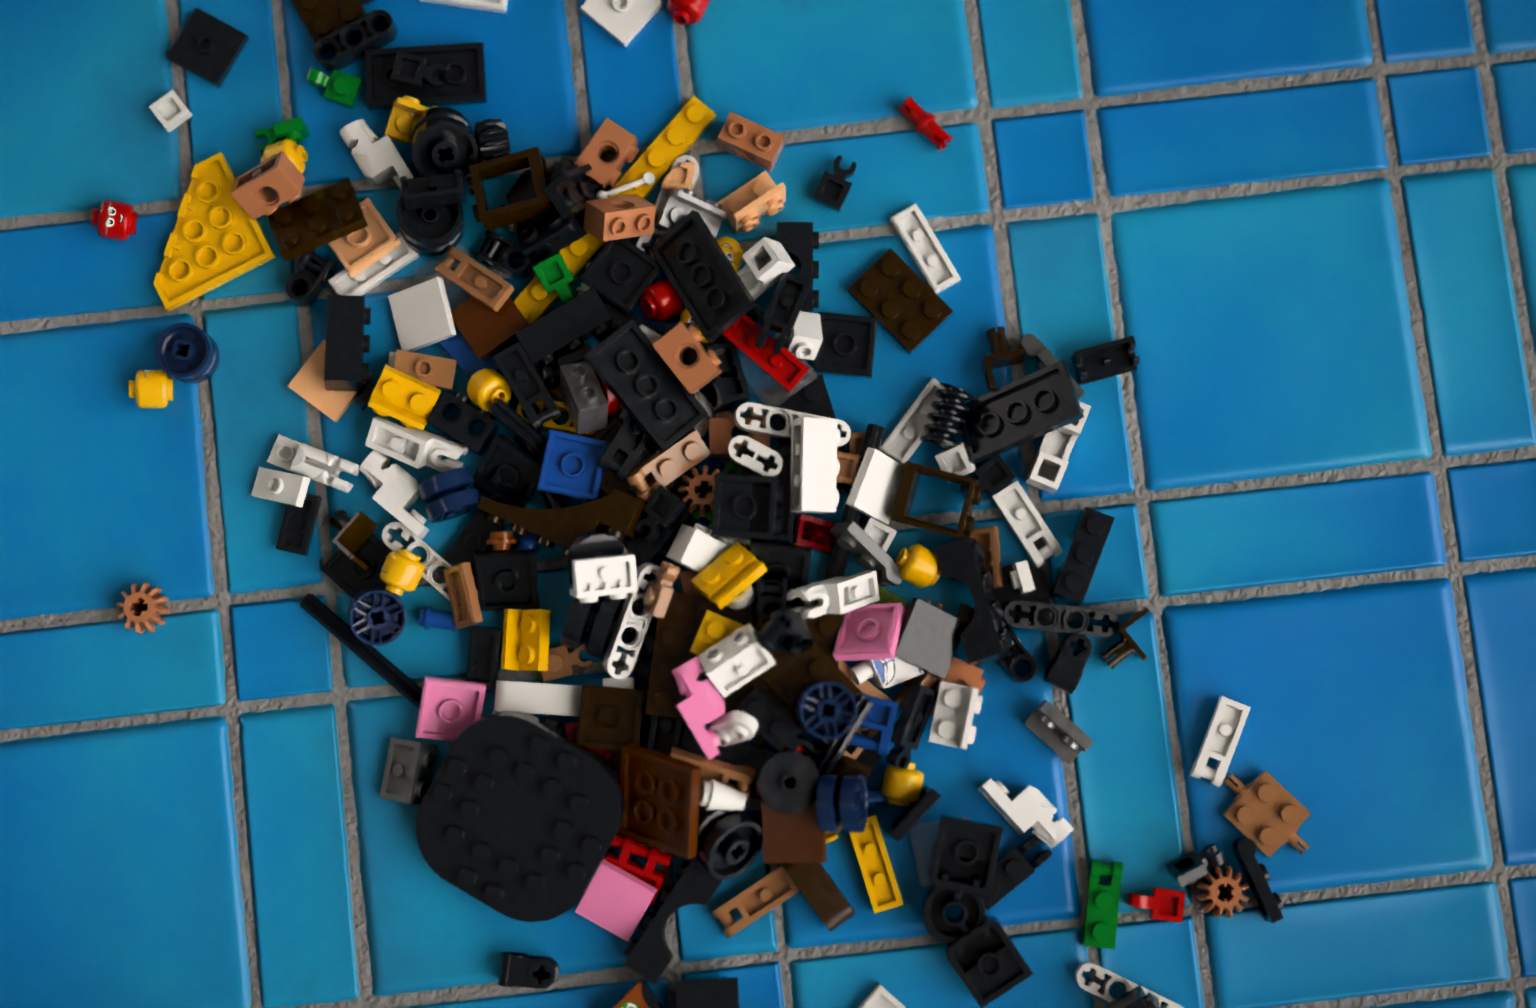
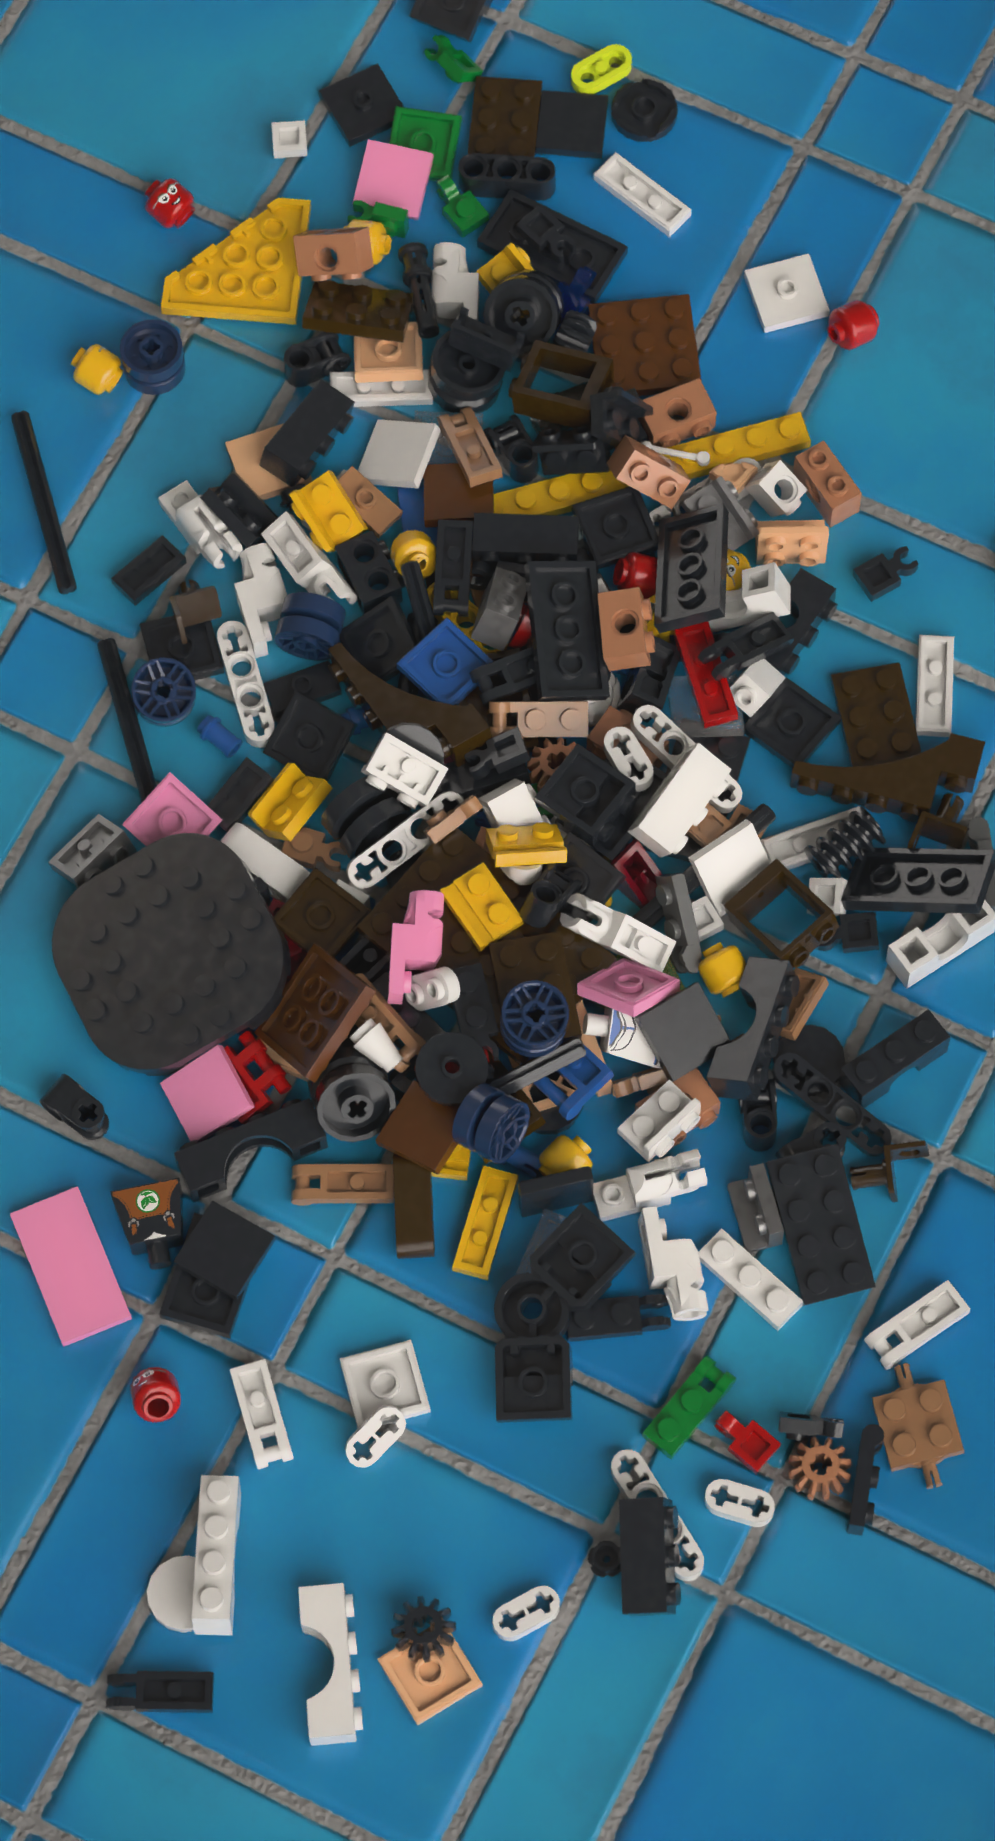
camera: 35 degrees right, 15 degrees down
(183, 518) = (44, 502): none -> black axle
(271, 95) = (394, 177): none -> bright pink tile
(274, 53) = (430, 133): none -> green plate
(280, 487) = (155, 526): white plate -> none
(336, 435) = (240, 509): none -> black bracket
(345, 166) = (415, 266): none -> black pin
(402, 571) = (216, 666): yellow head -> none
(463, 595) = (258, 723): medium nougat plate -> none
(470, 108) = (574, 293): none -> clear blue plate
(501, 540) = (330, 696): dark orange plate -> none
(546, 110) = (648, 342): none -> reddish brown plate
(555, 274) = (550, 487): green plate -> none
(707, 172) = (763, 489): none -> white brick
(735, 660) = (478, 921): white bracket -> none
(785, 633) = (542, 920): black piece -> none
(911, 724) = (611, 1101): black plate -> none
(955, 344) = (897, 786): none -> dark brown arch
(970, 763) = (648, 1185): none -> white plate
(1021, 577) = (818, 1038): white plate -> none
(1026, 523) = (860, 996): white plate -> none
(1083, 782) = (750, 1279): none -> white plate
(1110, 714) = (820, 1224): none -> black plate
(1179, 943) = (742, 1494): none -> white beam

